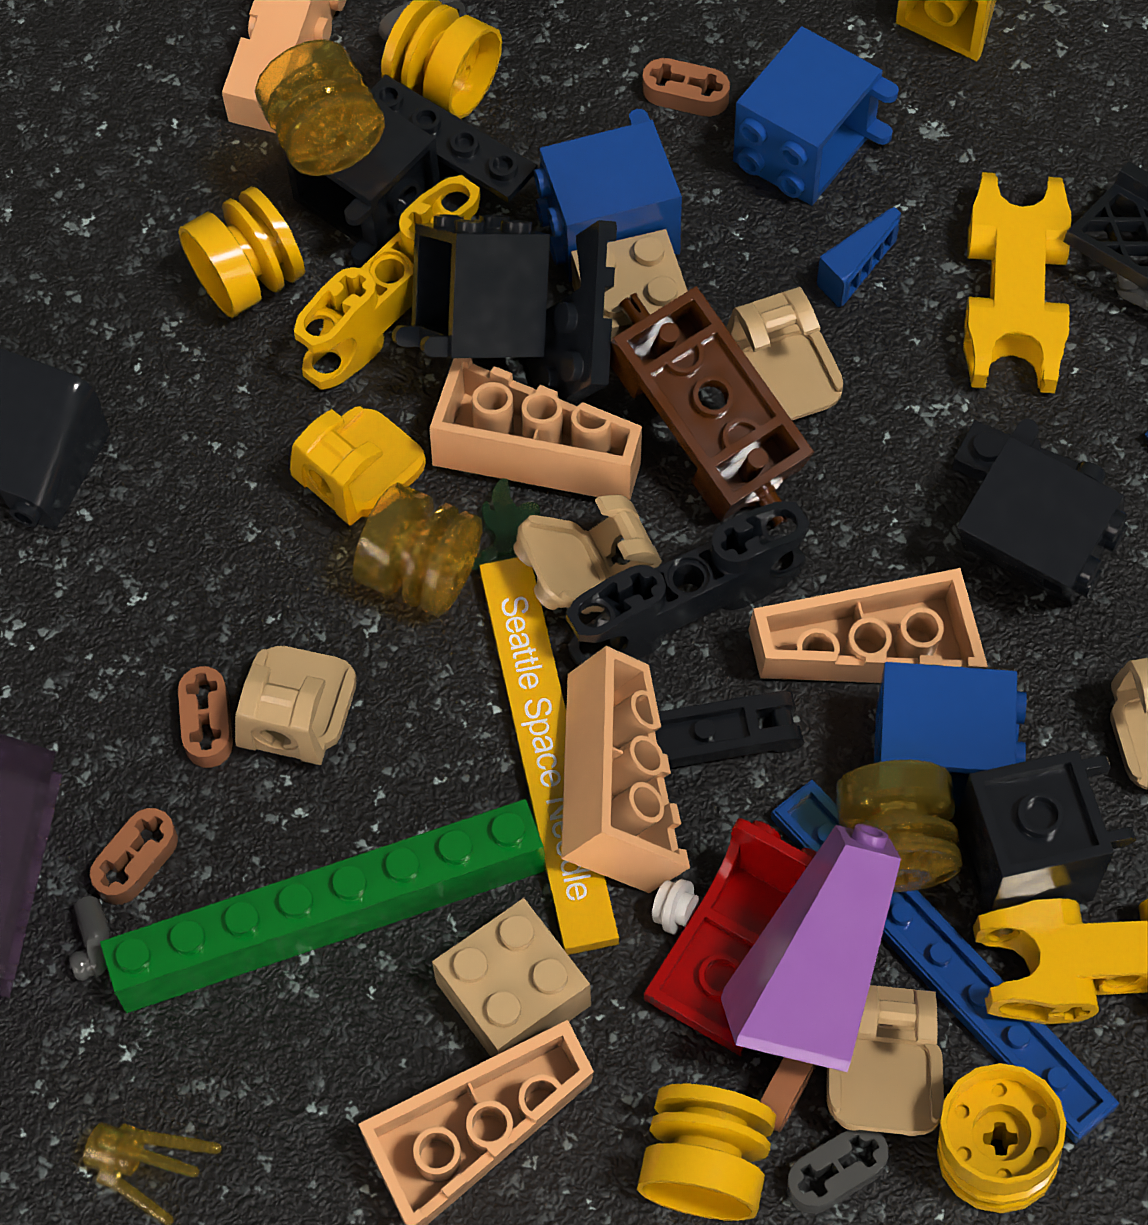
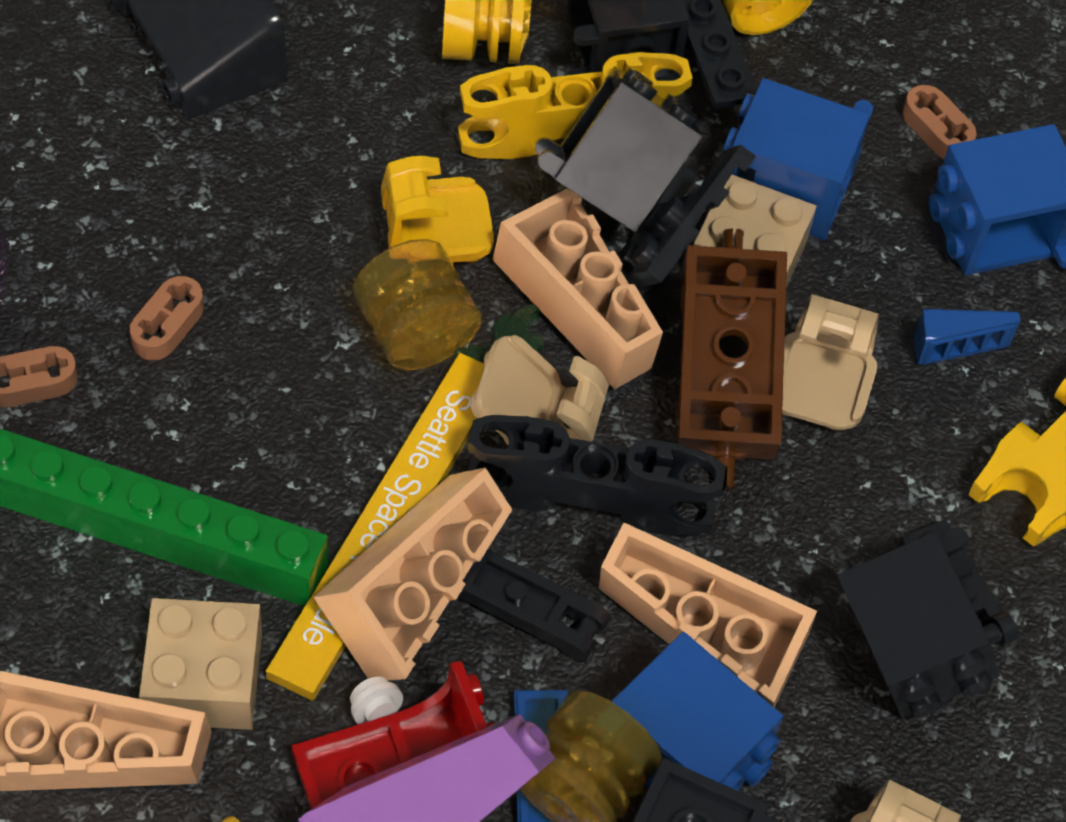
camera: 30 degrees right, 5 degrees down
(294, 703) = (230, 348): tan piece -> none

